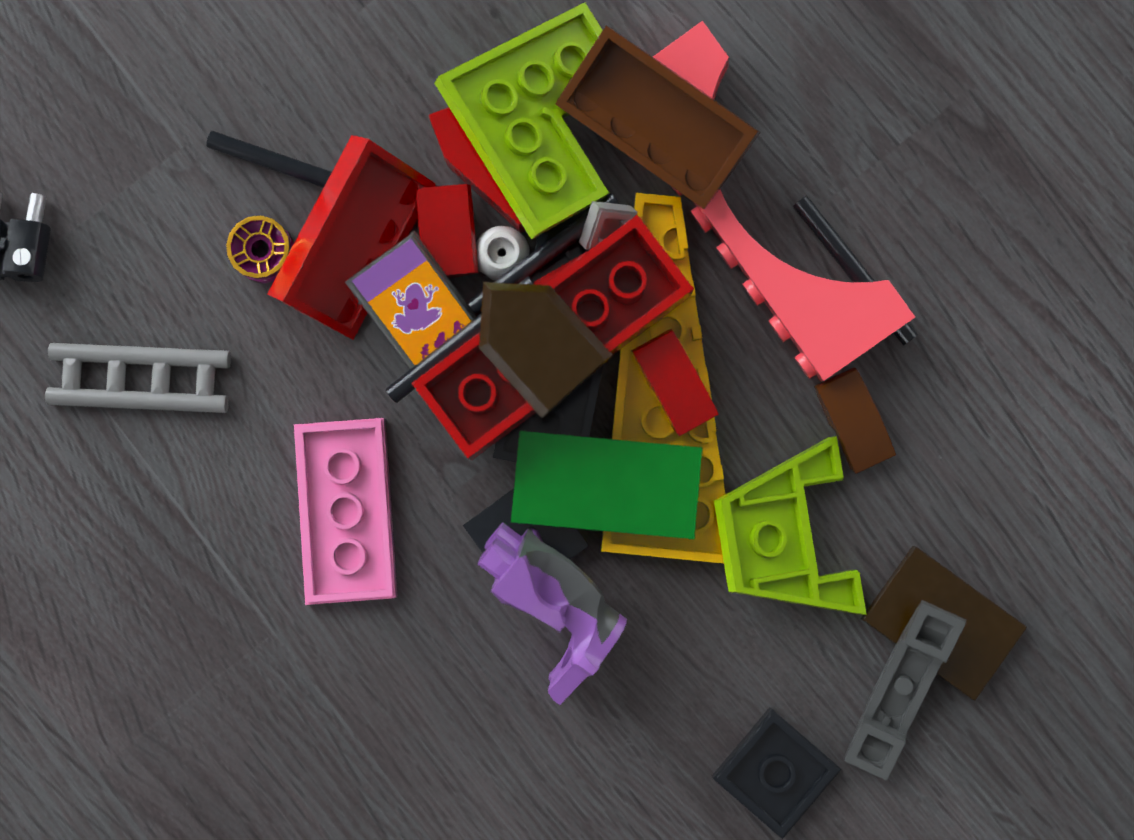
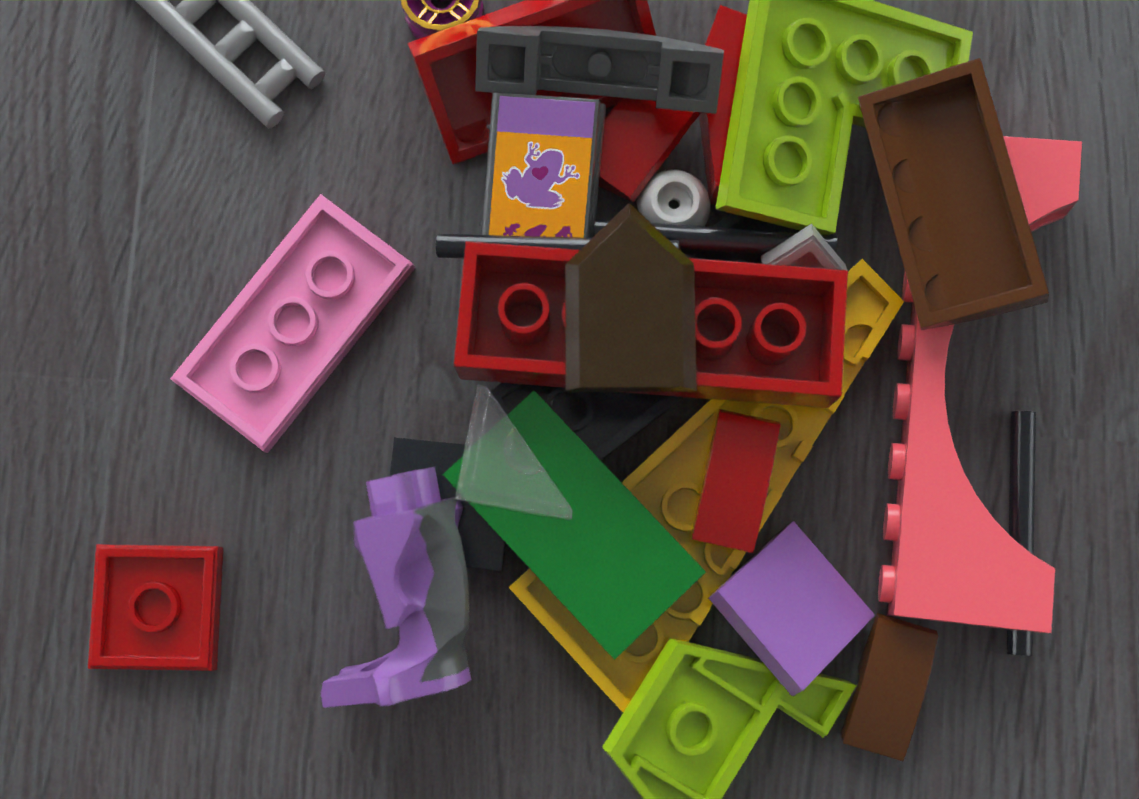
camera: 40 degrees right, 5 degrees down
(389, 211) = (599, 63): none -> dark grey slope
(414, 736) = (156, 607): none -> red tile
(541, 489) = (501, 467): none -> clear tile
(765, 424) = (792, 608): none -> medium lavender tile

